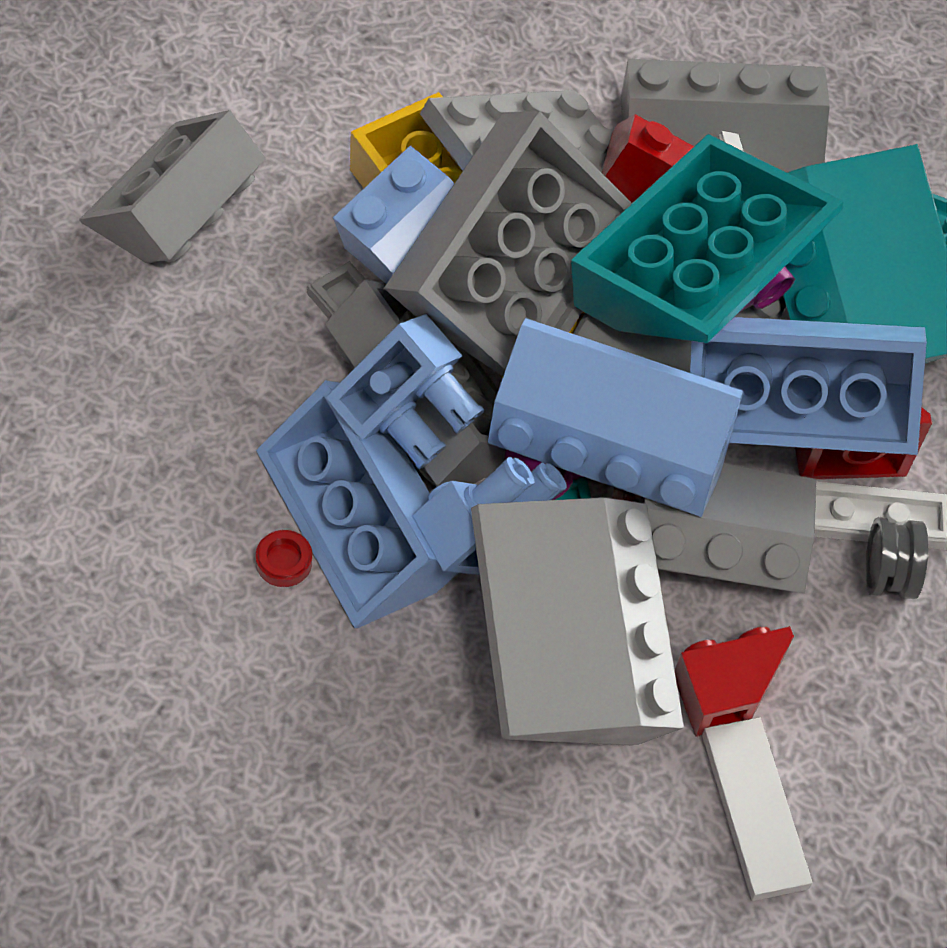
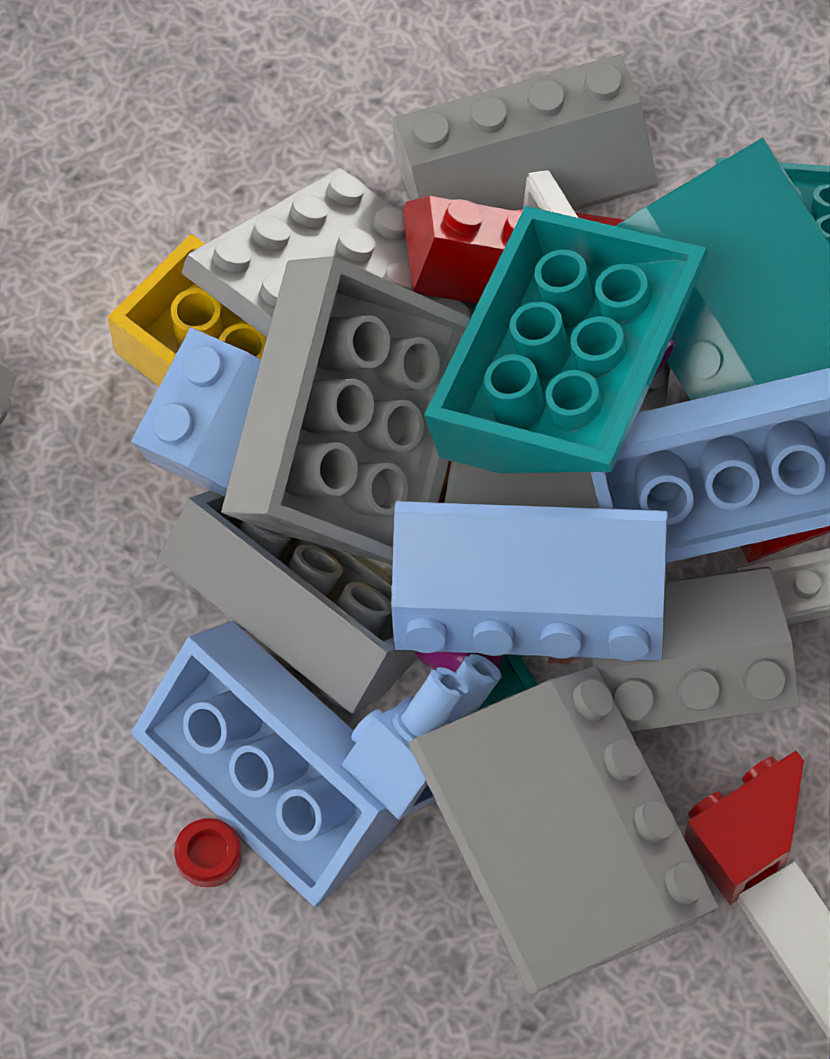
camera: 10 degrees left, 5 degrees up
(335, 288) = (156, 508): light grey tile -> none
(385, 385) = (261, 623): light blue brick -> none

